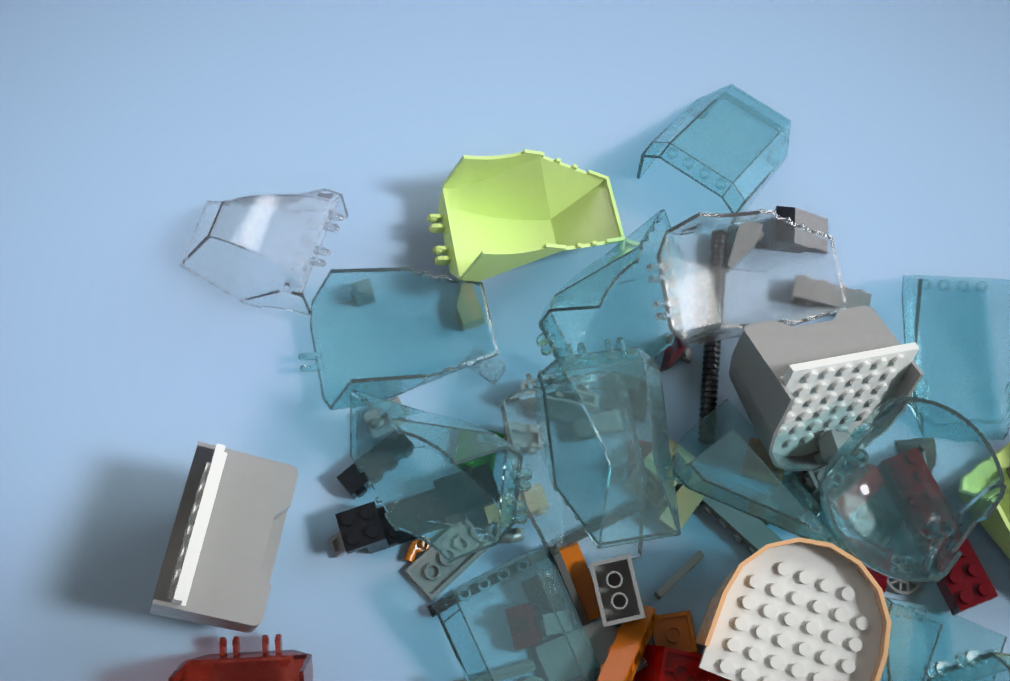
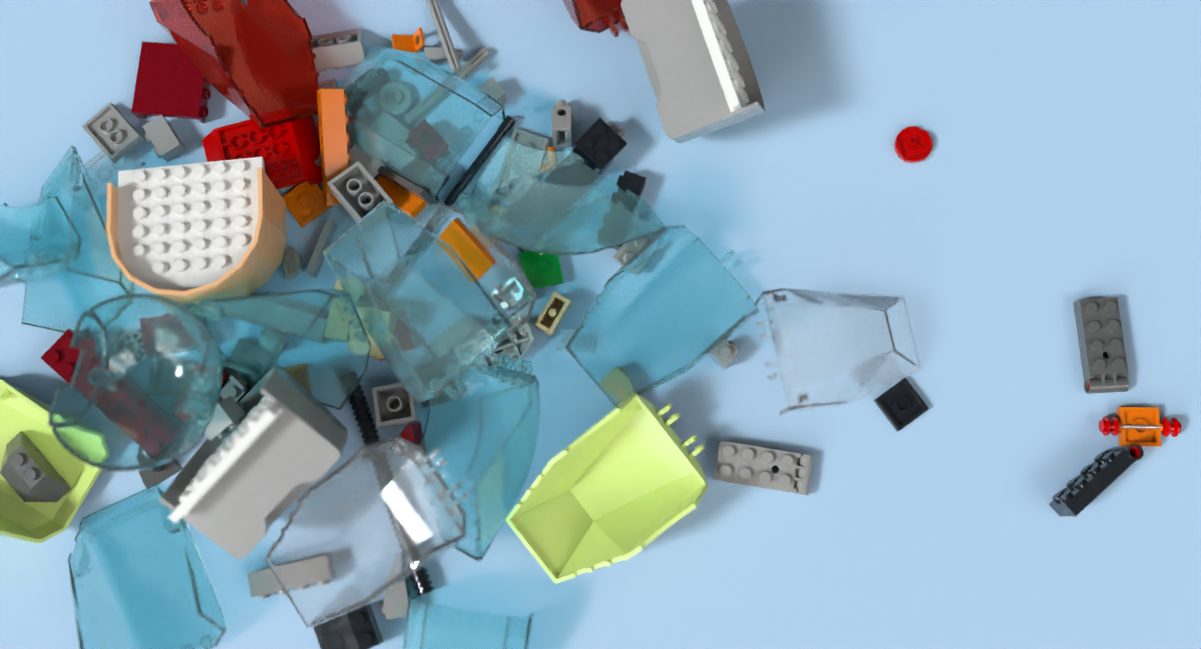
camera: 150 degrees right, 10 degrees up
(51, 145) = (1099, 334): none -> dark grey hinge
(71, 74) = (1139, 426): none -> orange plate
(77, 387) = (913, 144): none -> red tile
(134, 51) = (1095, 479): none -> black hinge
(243, 181) = (901, 404): none -> black tile
(388, 568) = (562, 124): none -> light grey torso
(393, 195) = (754, 465): none -> light grey hinge
(434, 645) = (493, 89): none -> light grey brick
(488, 399) = (552, 314): none -> tan brick
(542, 493) = (468, 247): none -> orange tile
(678, 389) = (394, 406): none -> light grey brick
(713, 576) = (291, 263): none -> light grey plate

